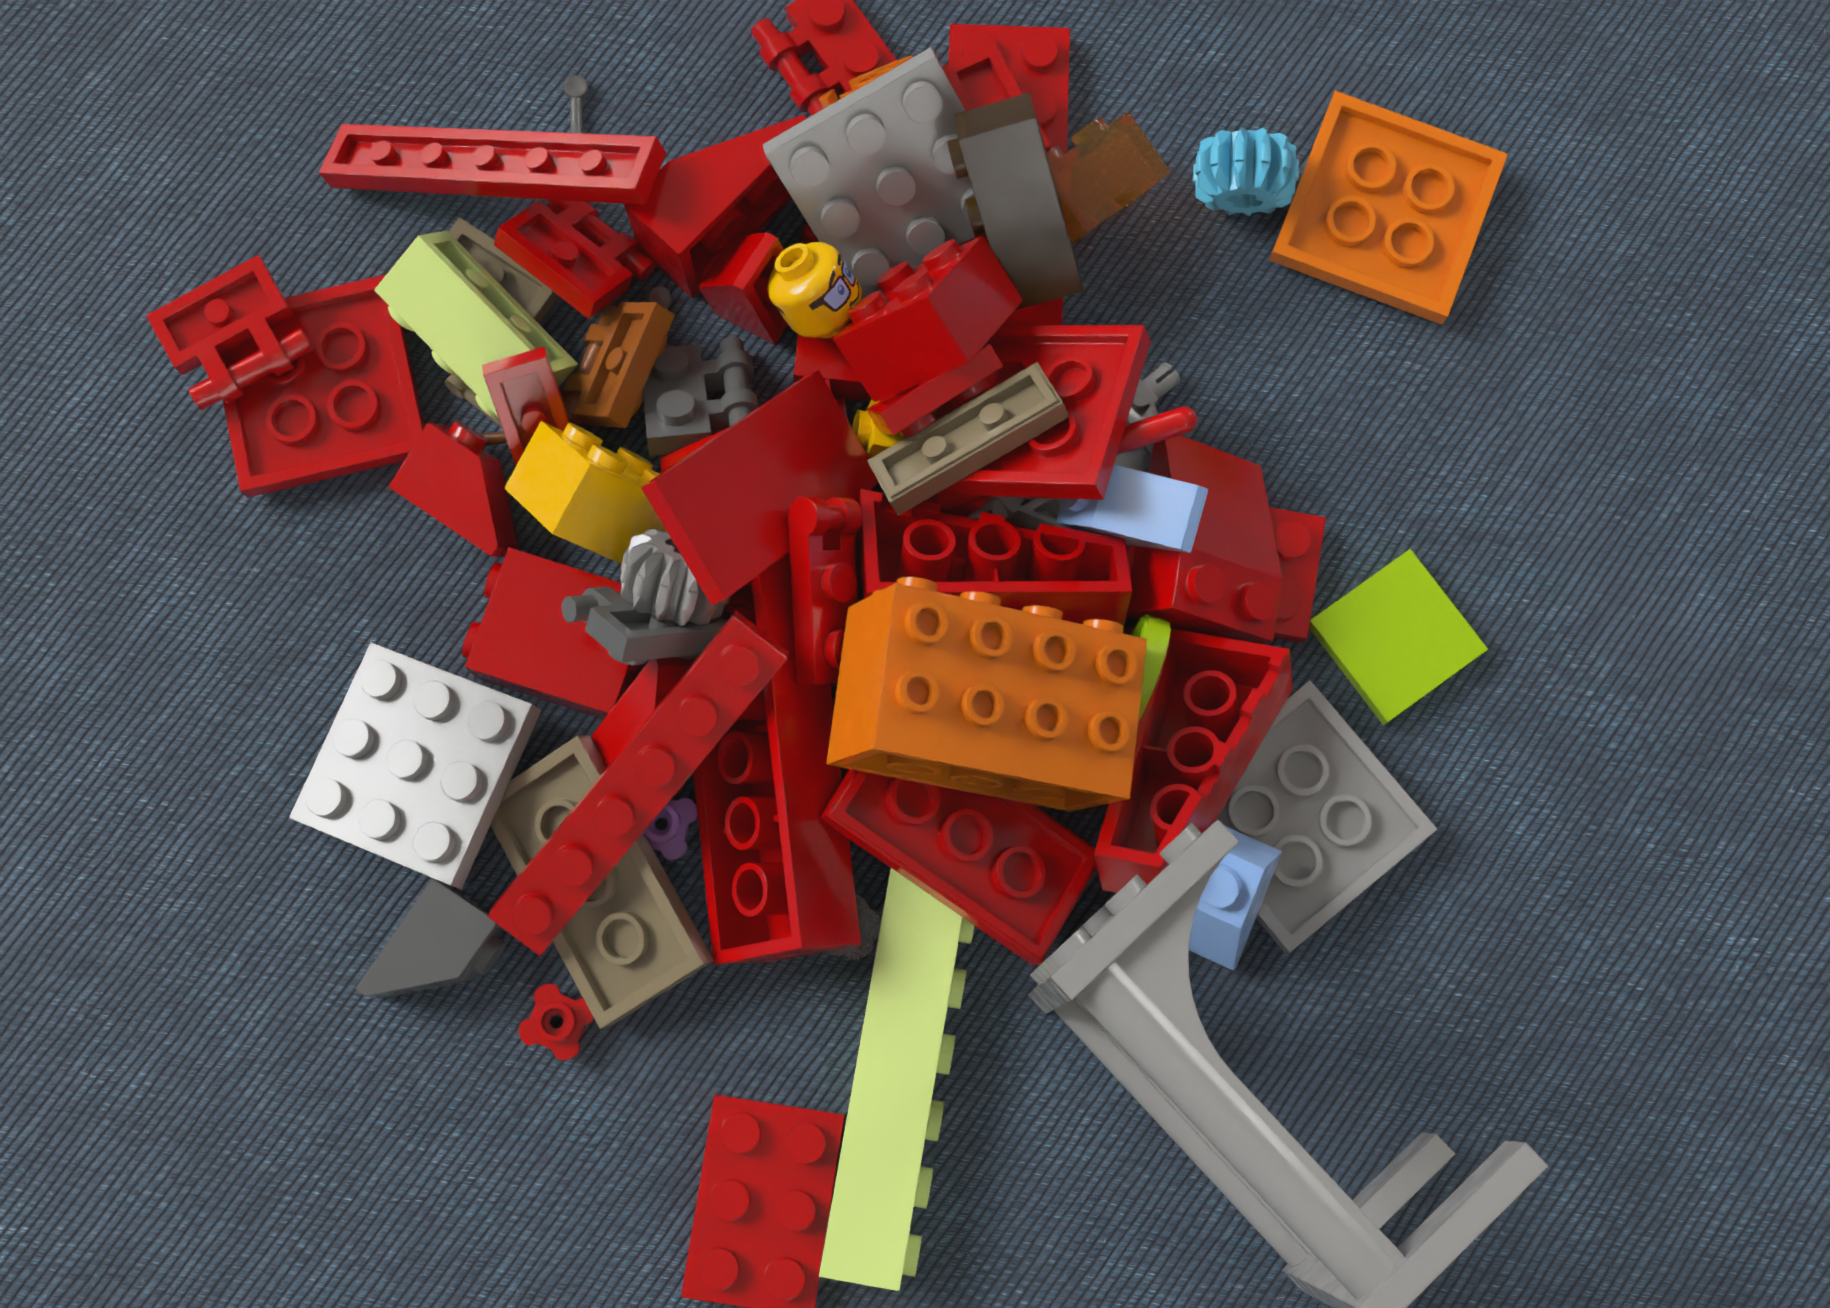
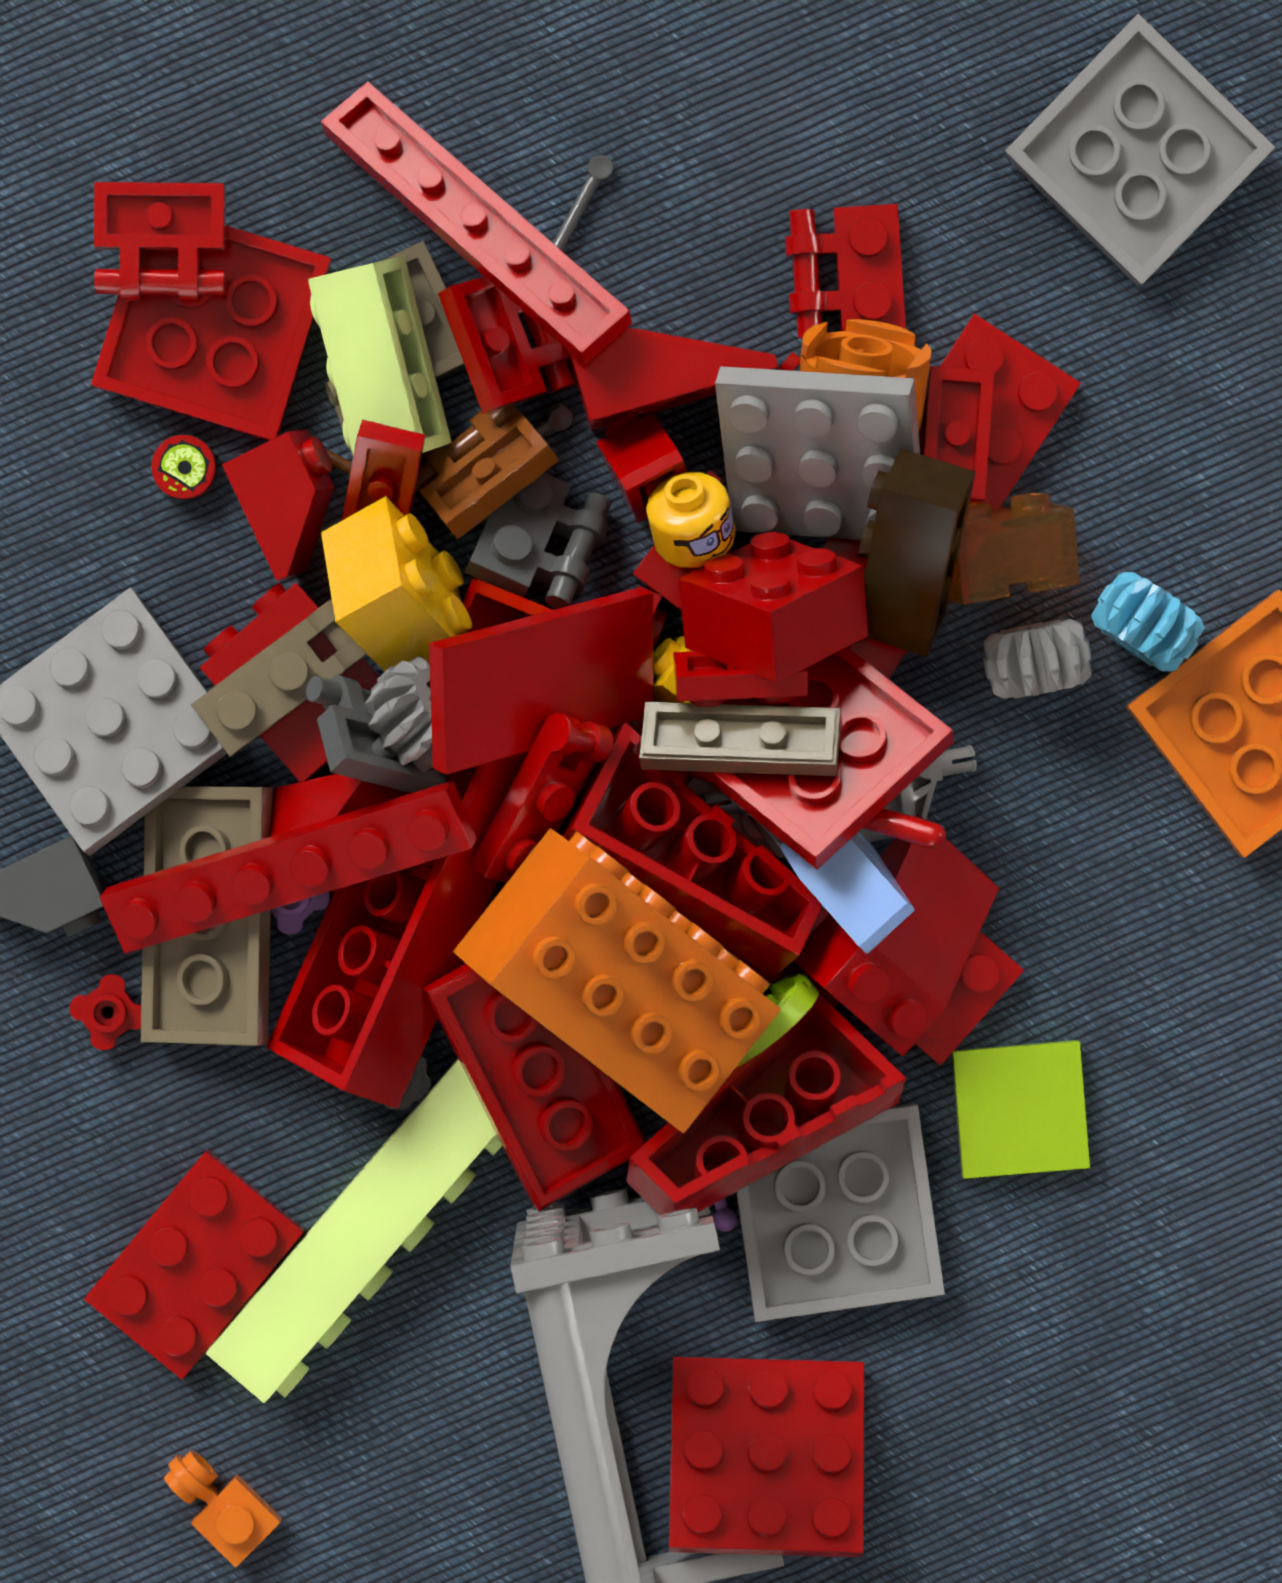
camera: 25 degrees right, 10 degrees up
(362, 518) = (184, 467): none -> tile
(535, 632) = (274, 681): none -> dark tan plate
(1174, 252) = (1037, 658): none -> light grey gear
(1232, 901) = (748, 1235): light blue slope -> none
(1377, 1067) = (767, 1457): none -> red plate

